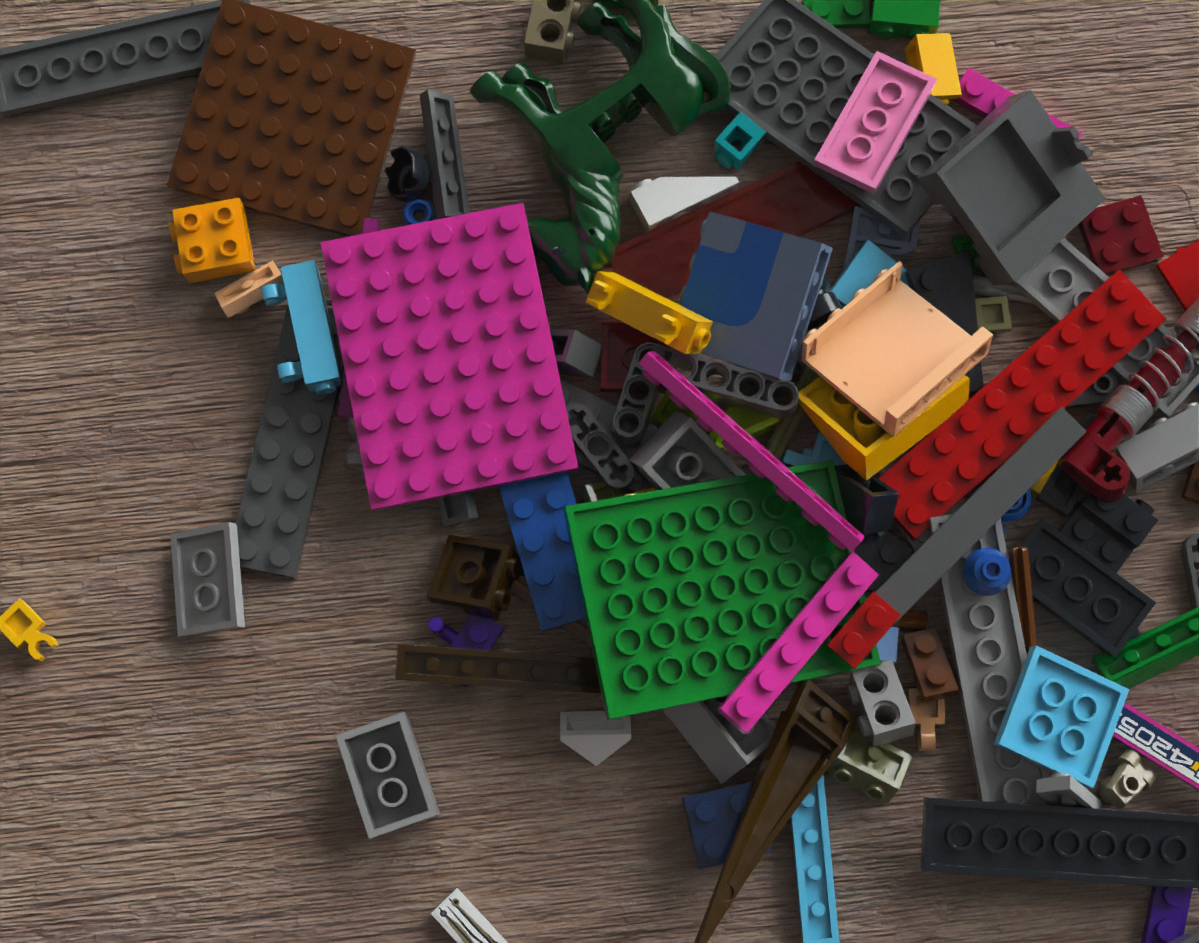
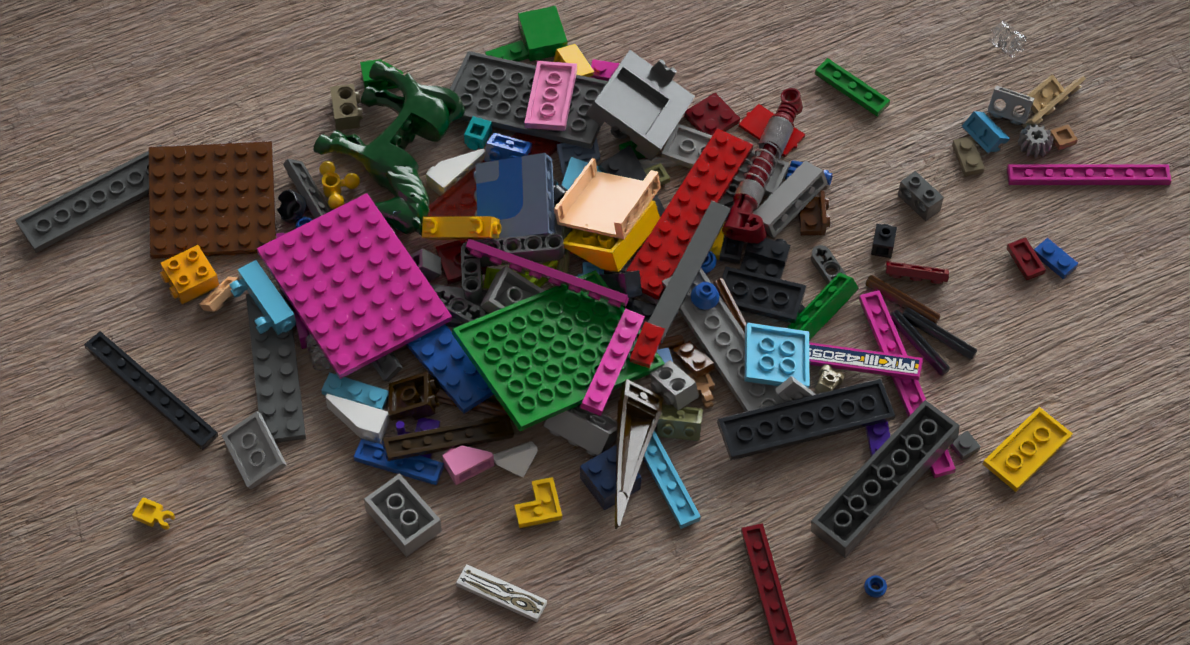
camera: 20 degrees left, 20 degrees down
(93, 418) = (151, 390): none -> black plate
(387, 586) = (363, 420): none -> white slope
(397, 533) = (355, 391): none -> medium azure plate
(443, 699) = (413, 467): none -> blue plate
(513, 158) = (334, 192): none -> yellow piece
(514, 715) = (466, 462): none -> bright pink slope
(608, 838) = (543, 509): none -> yellow plate
(772, 193) = (505, 147): none -> blue bracket

